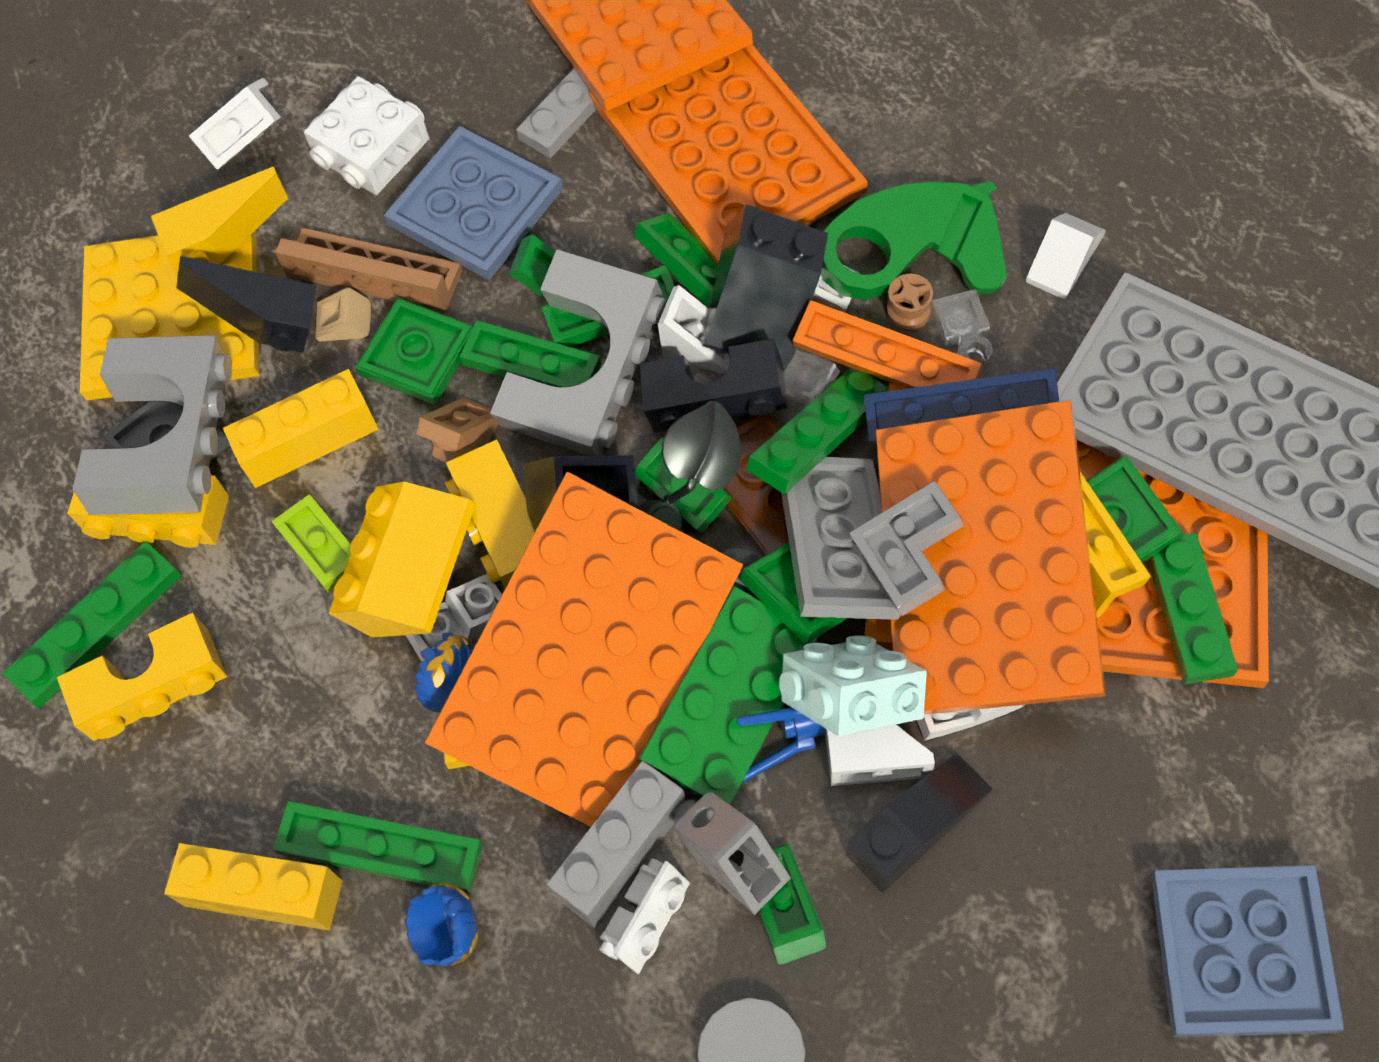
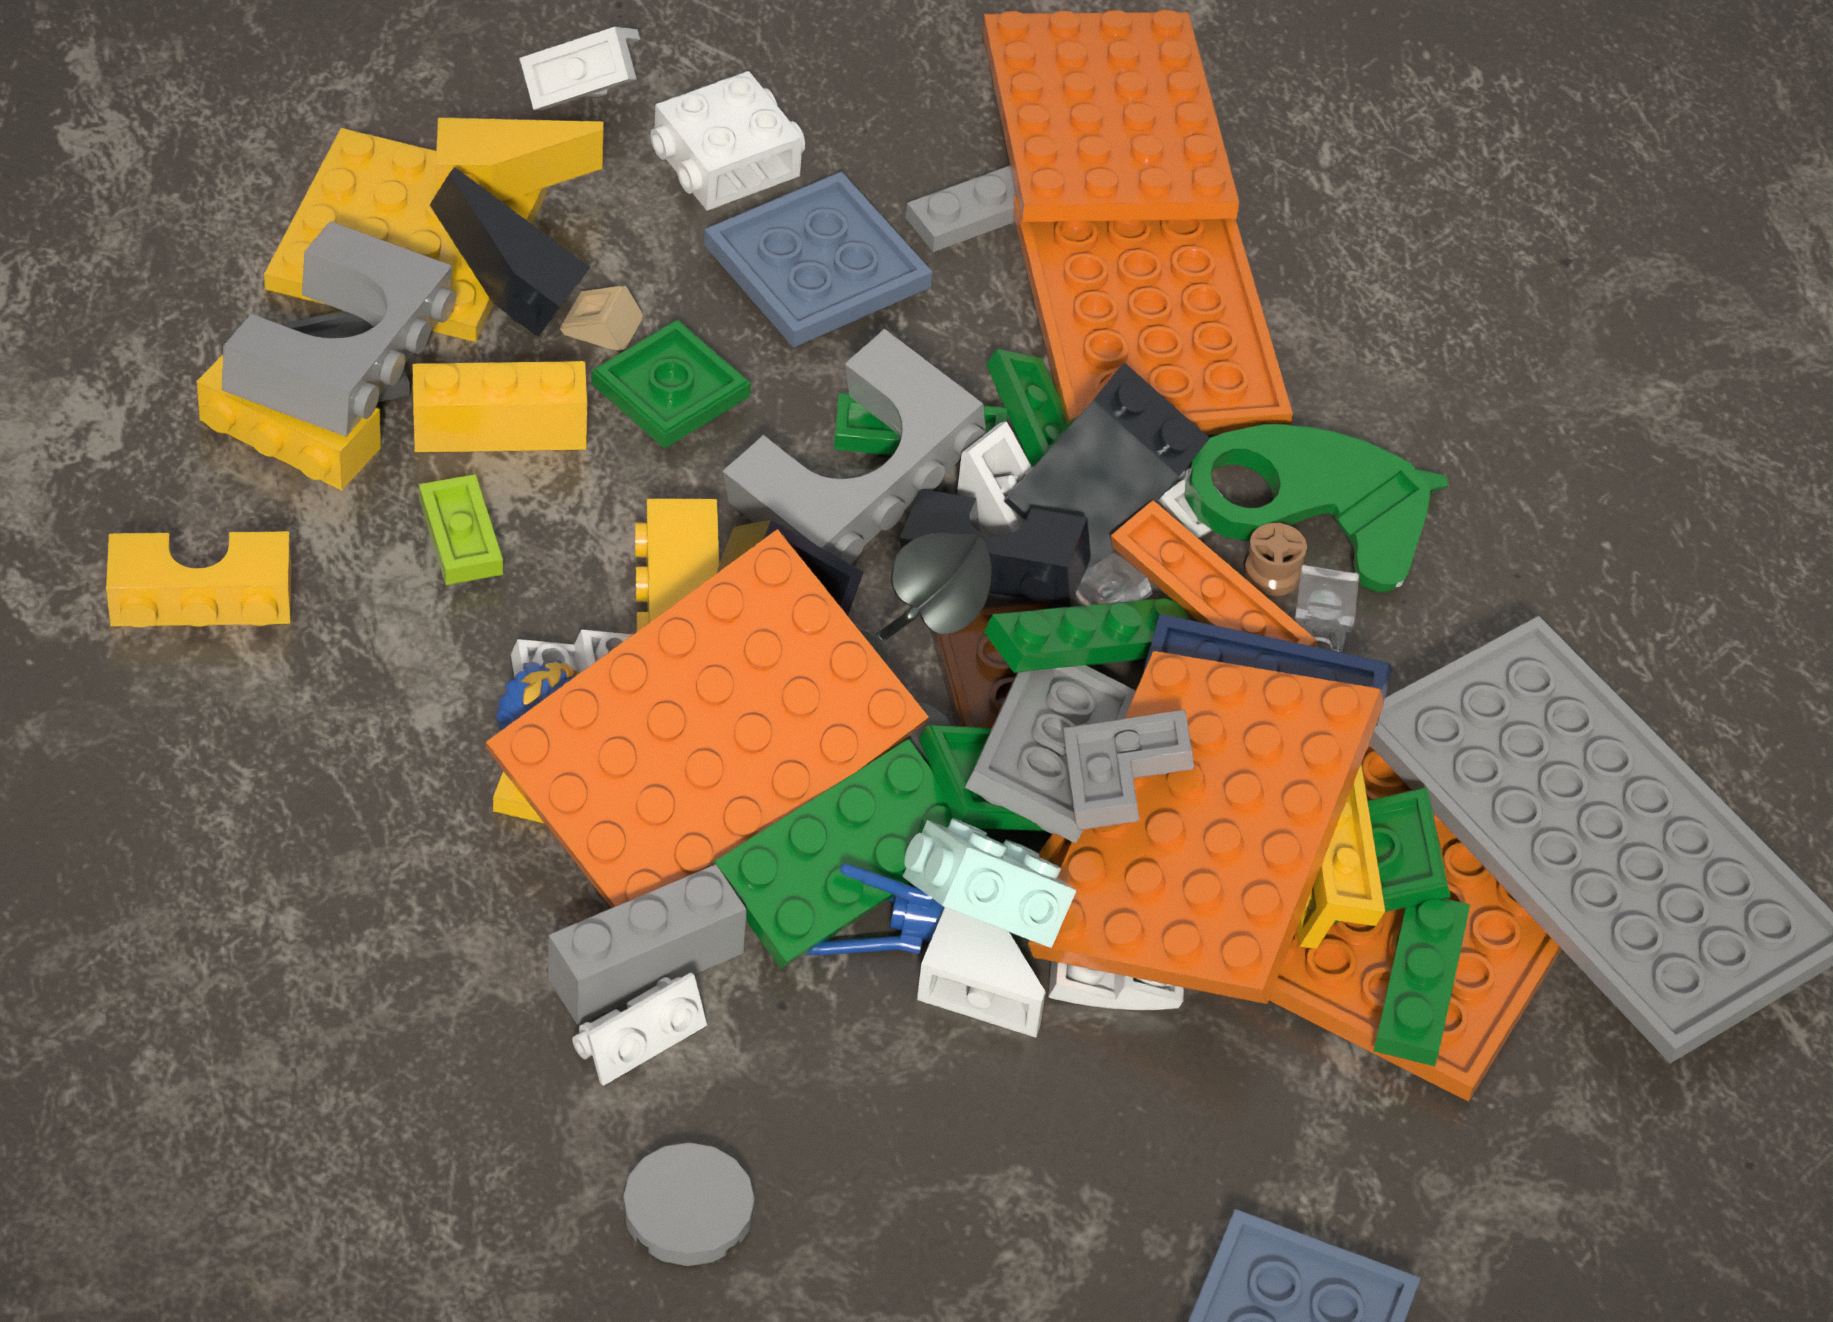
camera: 10 degrees right, 15 degrees down
(92, 624) = (168, 506): green plate -> none
(254, 886) = (225, 822): yellow brick -> none
(366, 275) = (660, 280): medium nougat fence -> none
(378, 846) = (379, 845): green plate -> none
(401, 560) = (546, 572): yellow slope -> none
(441, 925) = (412, 940): blue hair -> none
(457, 428) = (675, 473): medium nougat slope -> none
(504, 351) = (762, 411): green plate -> none
(532, 263) = (848, 341): green plate -> none
(697, 507) = (914, 652): green plate -> none
(713, 833) = (764, 973): light grey torso -> none
(791, 916) = (800, 1085): green slope -> none
(916, 821) = (988, 1061): black slope -> none
(1064, 254) = (1489, 583): white slope -> none

